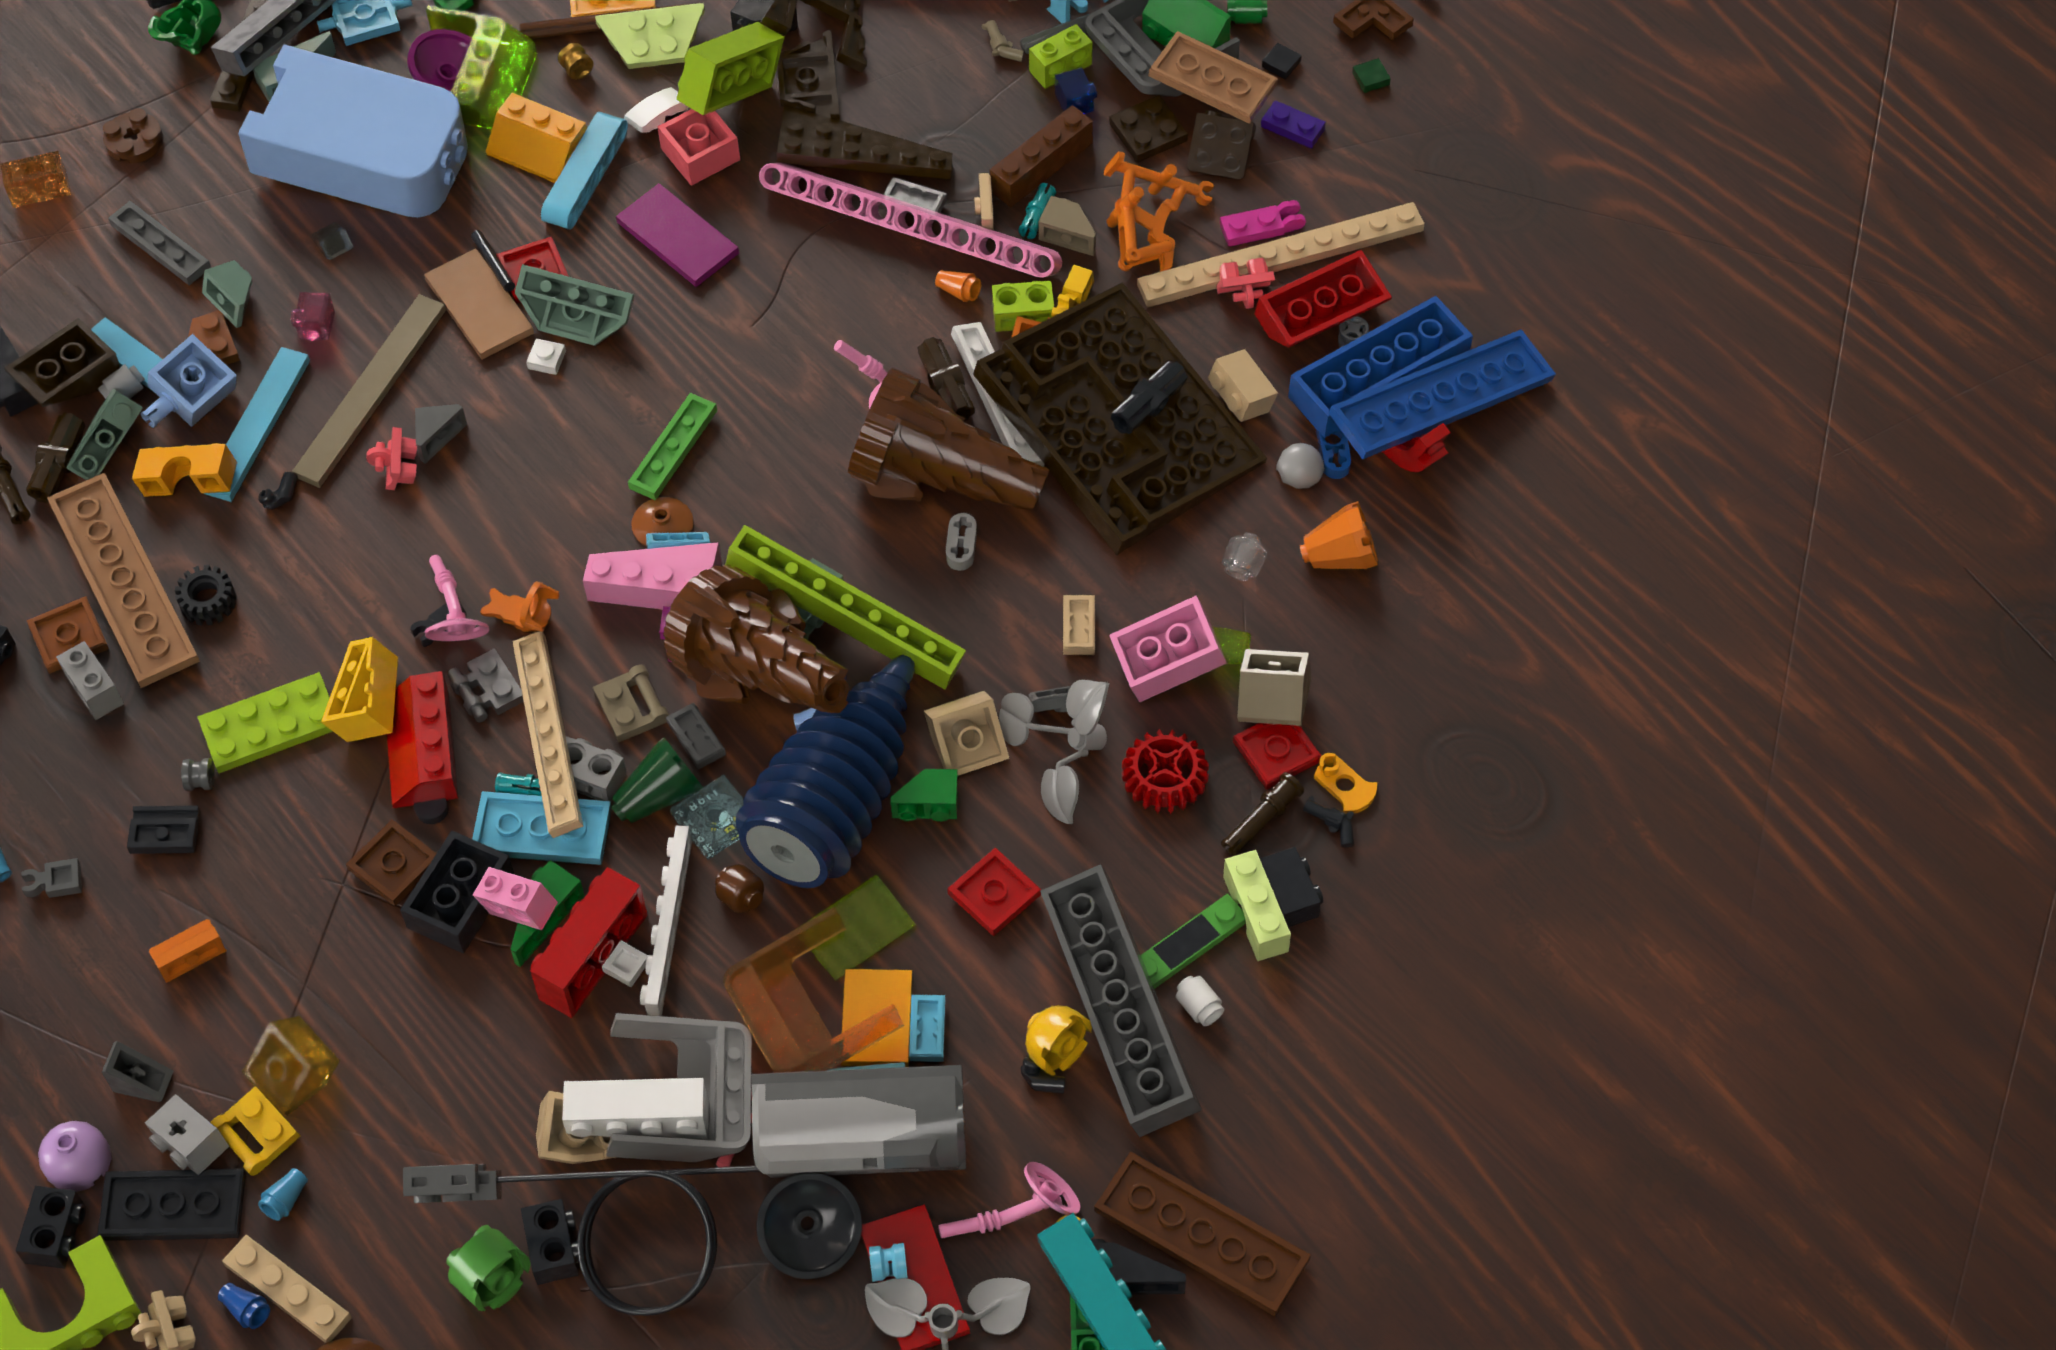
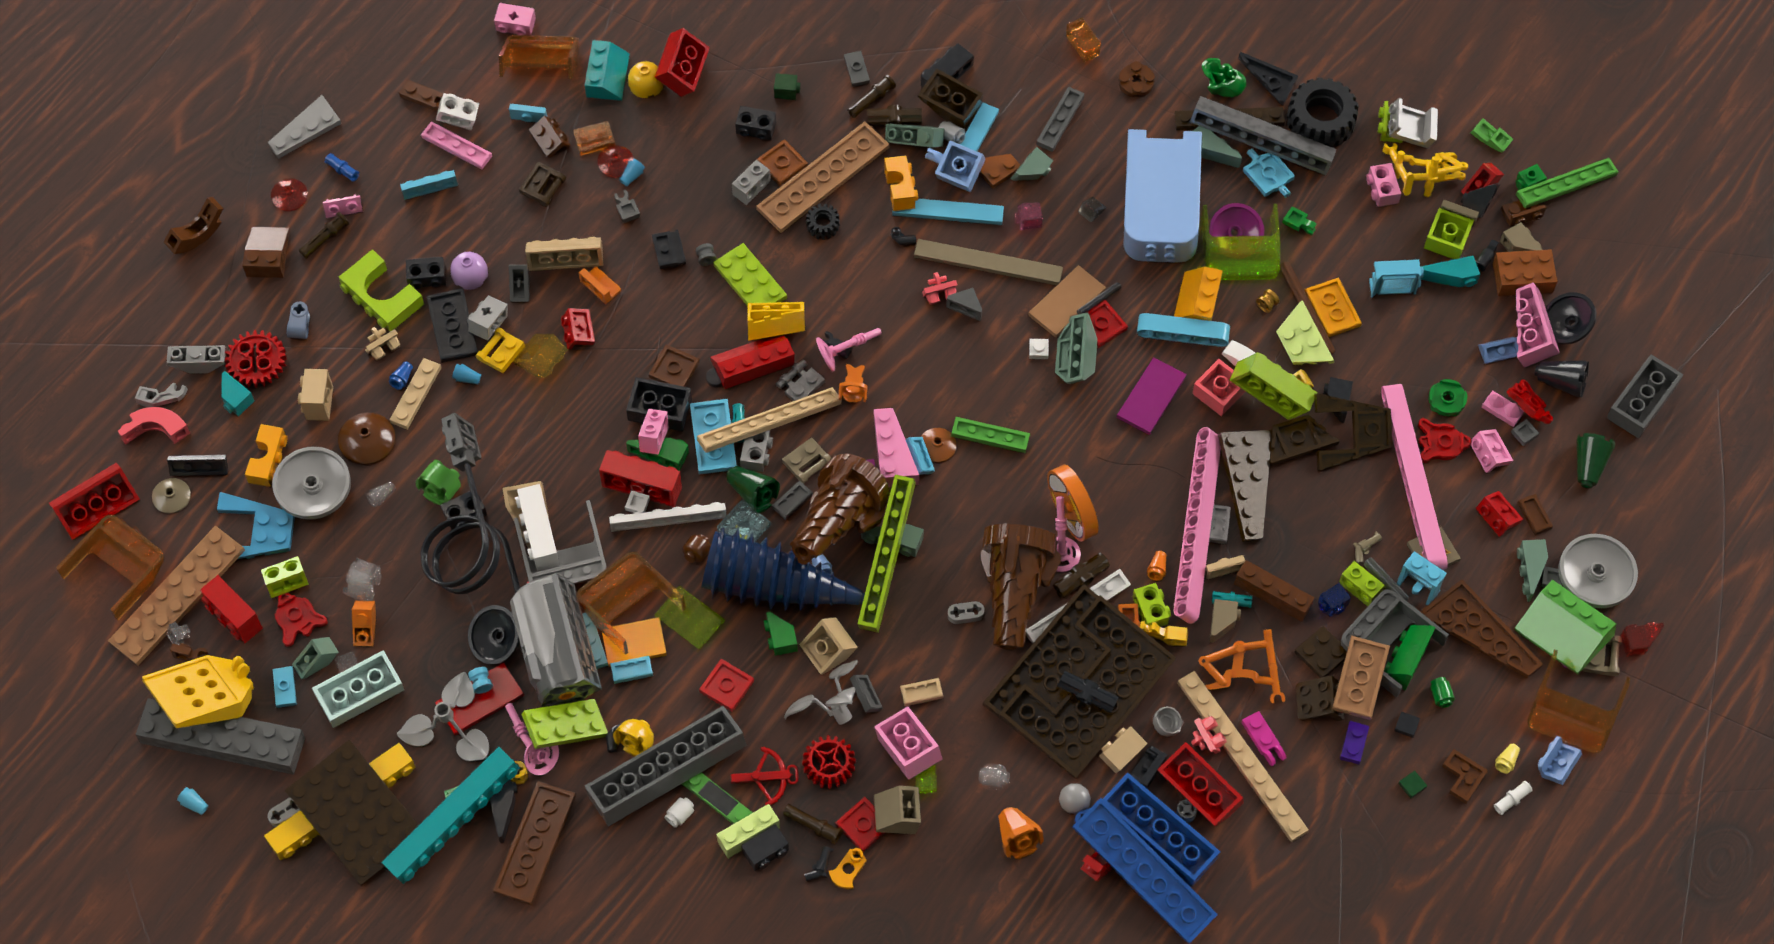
camera: 75 degrees right, 5 degrees up
(107, 987) = (564, 253): none -> tan slope
(259, 997) = (577, 327): none -> red bracket
(811, 335) = (1077, 504): none -> orange piece
(1007, 1139) = (564, 723): none -> lime plate
(1167, 868) = (757, 776): none -> red piece
(1211, 325) = (1167, 721): none -> light grey hair
(1275, 362) = (1147, 766): none -> black hinge

